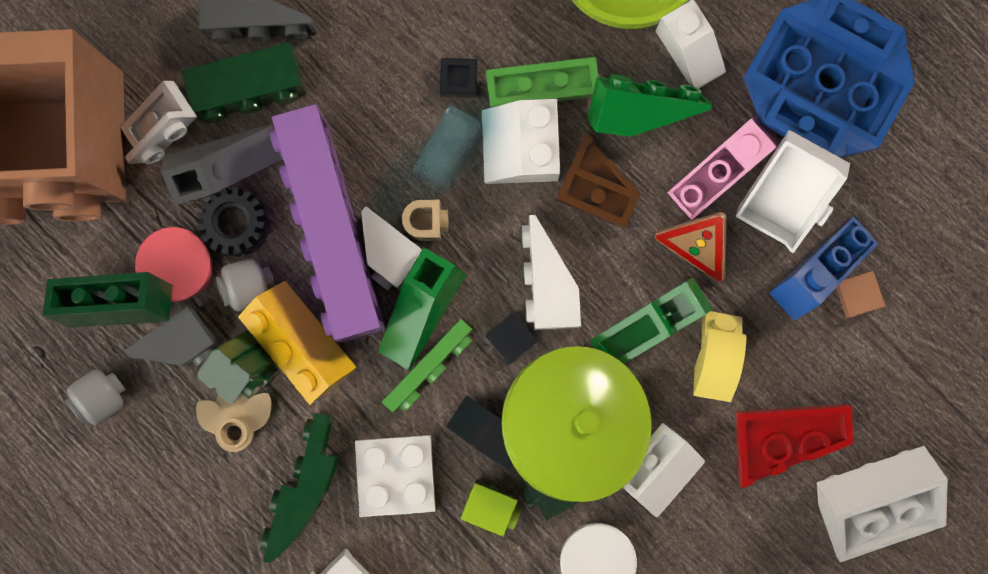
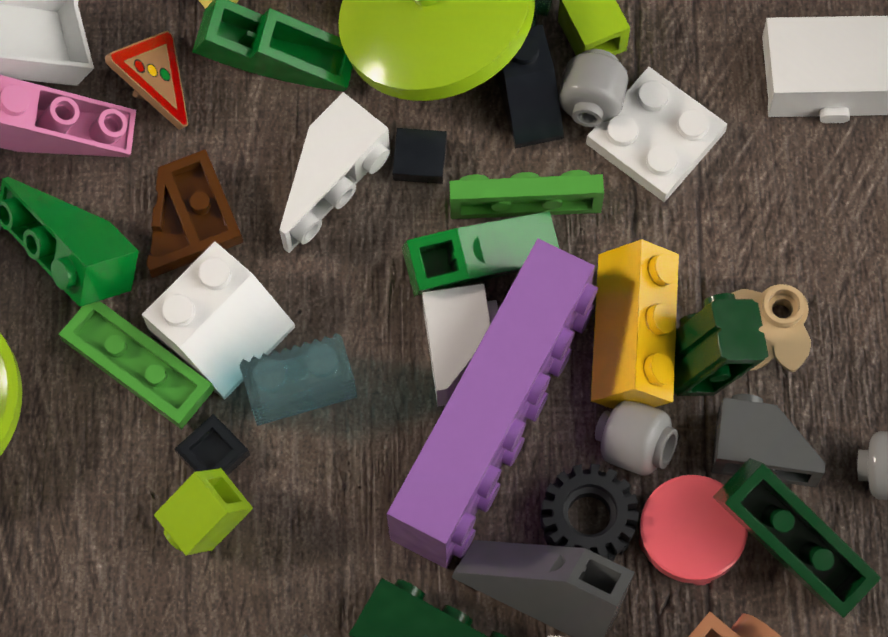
camera: 135 degrees left, 15 degrees down
(298, 503) = (769, 183): dark green slope -> none
(425, 37) = (202, 512): none -> lime brick
(425, 220) = (390, 332): tan plate -> none
(450, 465) = (593, 87): none -> light grey head

